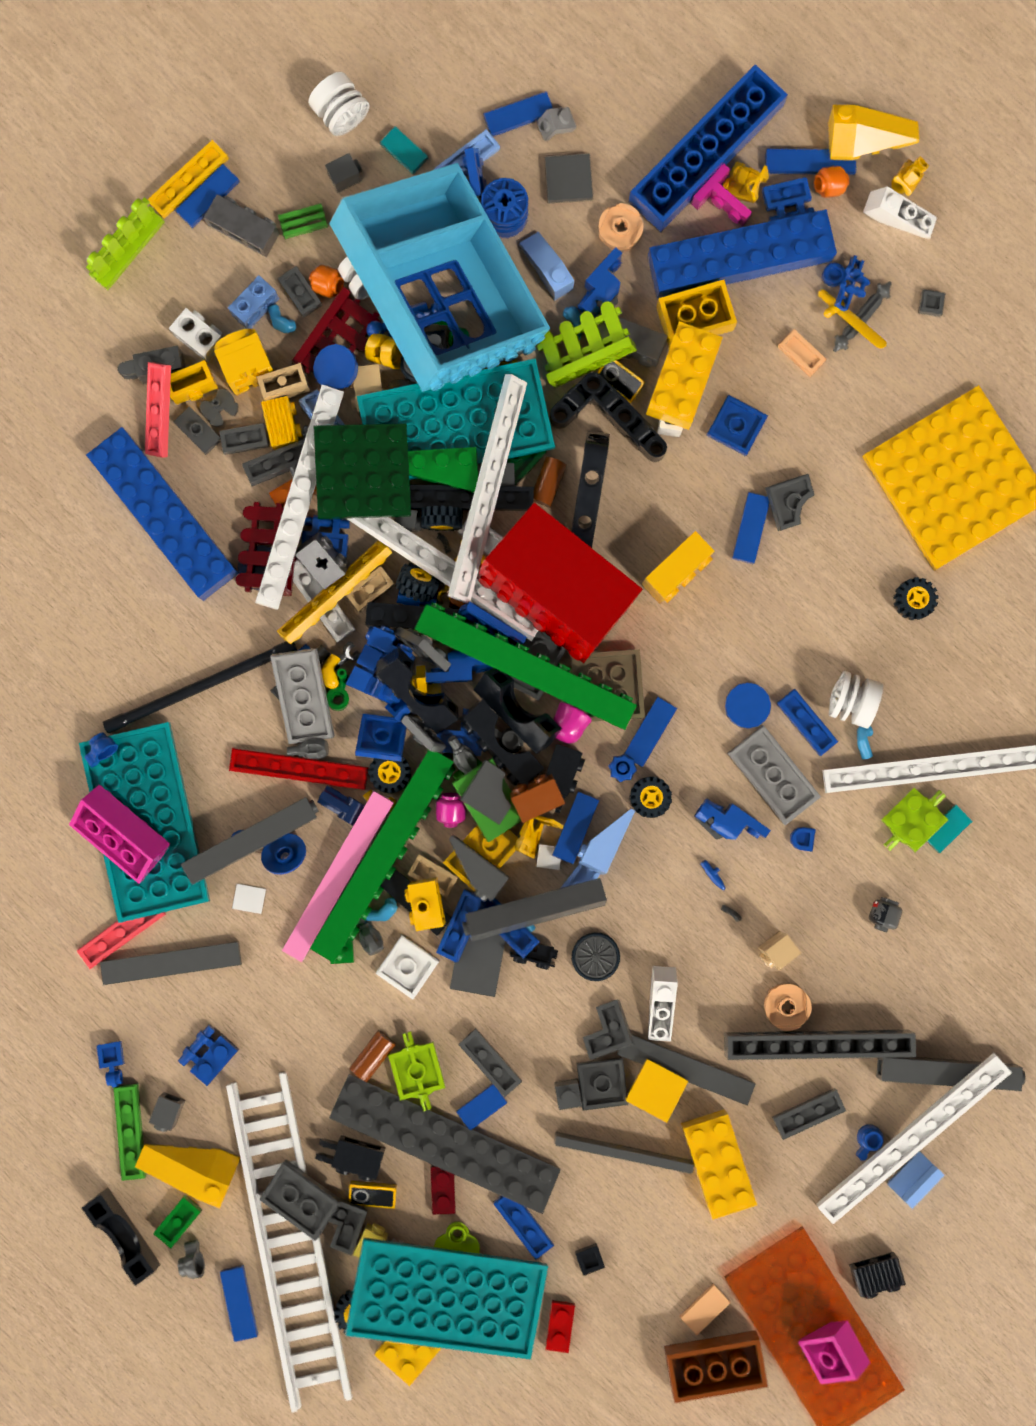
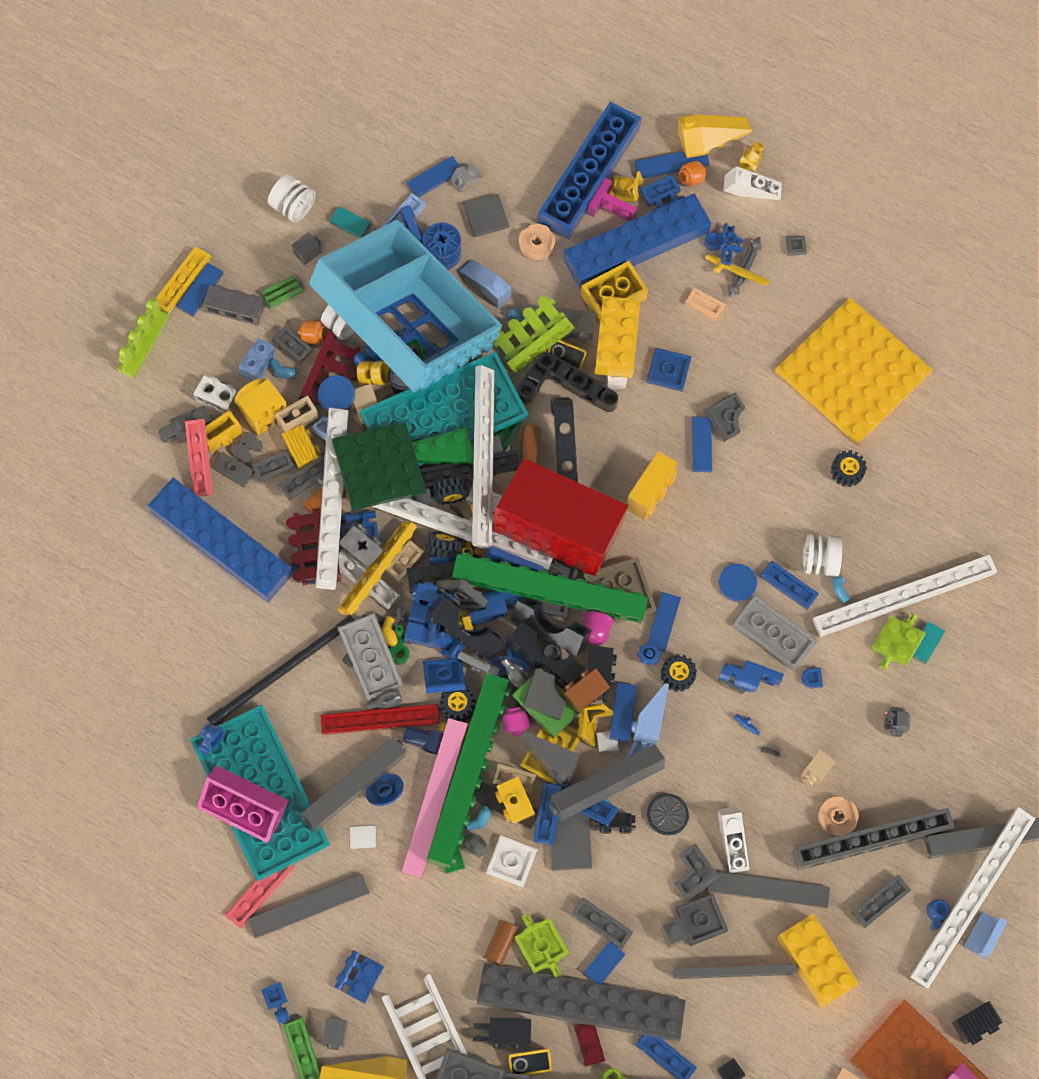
camera: 15 degrees left, 15 degrees down
(602, 285) = (533, 286): blue plate -> none
(656, 1090) = (748, 911): yellow tile -> none

